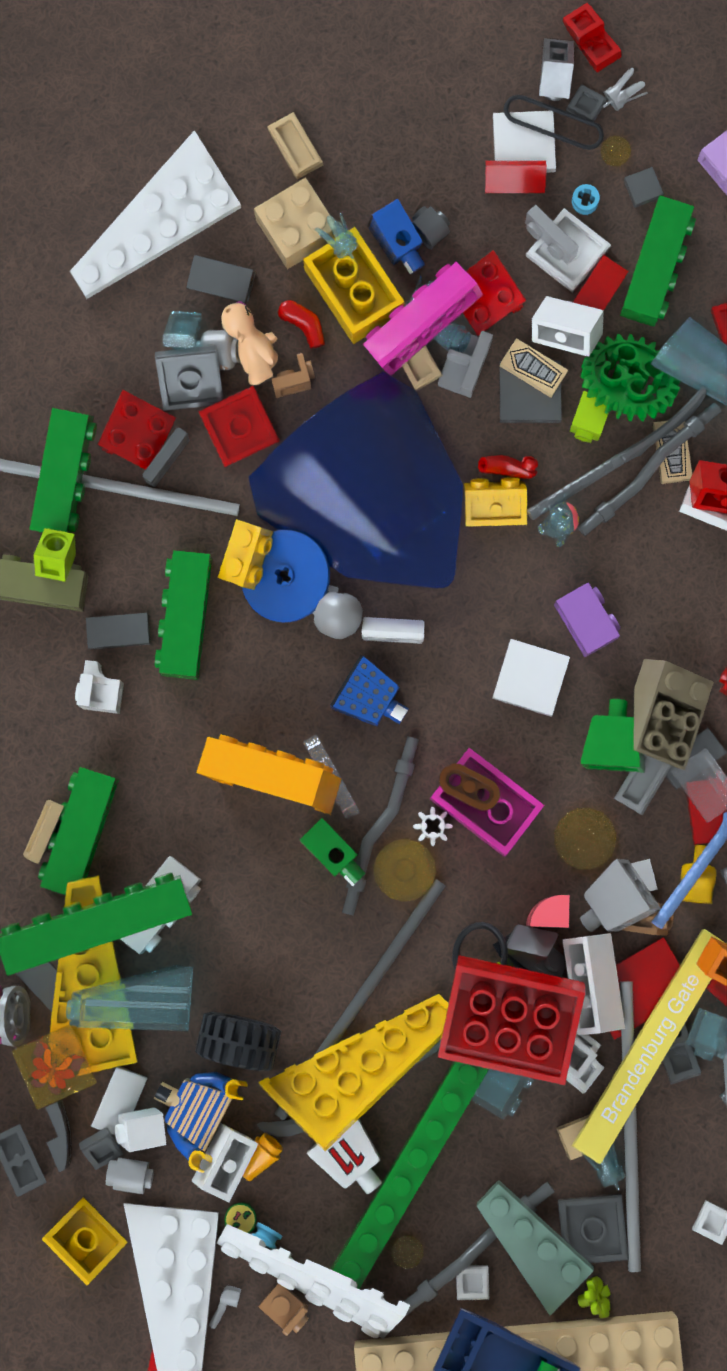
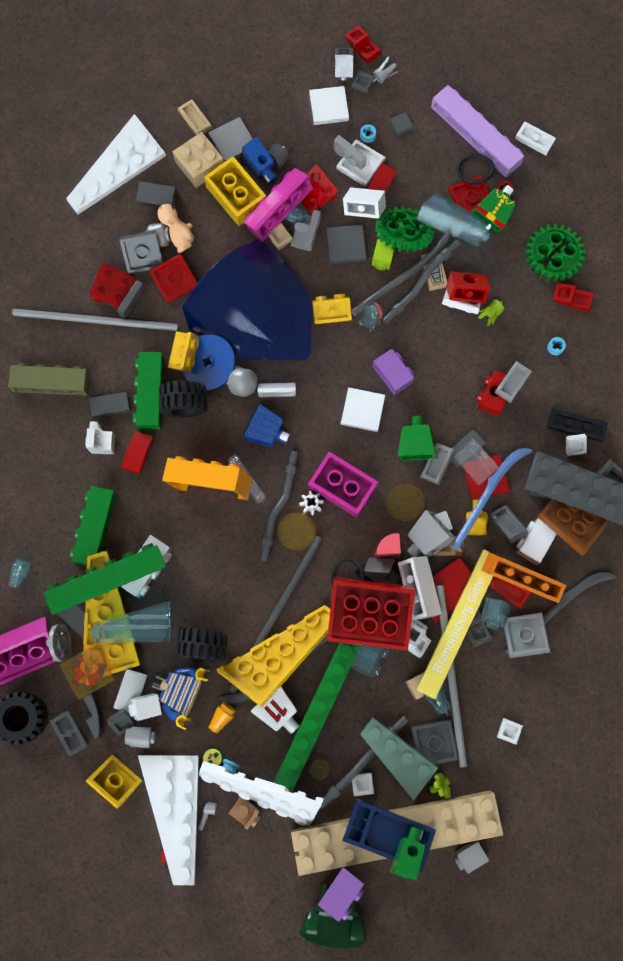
camera: 10 degrees left, 5 degrees down
(43, 831) = (71, 528): tan tile -> none
(54, 554) = (66, 359): lime brick -> none
(62, 471) = (68, 312): green brick -> none
(157, 716) = (136, 452): none -> red slope
(182, 330) = (135, 224): clear light blue plate -> none
(230, 1156) = (202, 719): white brick -> none
(238, 637) = (182, 399): none -> black tyre
(292, 382) = (204, 250): medium nougat bracket -> none
(305, 320) = (207, 214): red arm -> none
(321, 841) = (244, 516): green torso -> none
(345, 241) = (227, 162): clear light blue piece -> none
(355, 189) = (230, 138): none -> light grey tile
(470, 785) = (331, 473): reddish brown plate -> none
(509, 466) = (338, 288): red arm -> none
(515, 176) = (325, 123): tile -> none
(533, 368) = (347, 229): tile -> none
(557, 110) = (347, 85): black piece -> none
(615, 151) = (382, 106): clear yellow piece -> none
(657, 261) = (413, 163): green brick -> none
(668, 711) = (448, 418): dark tan slope -> none

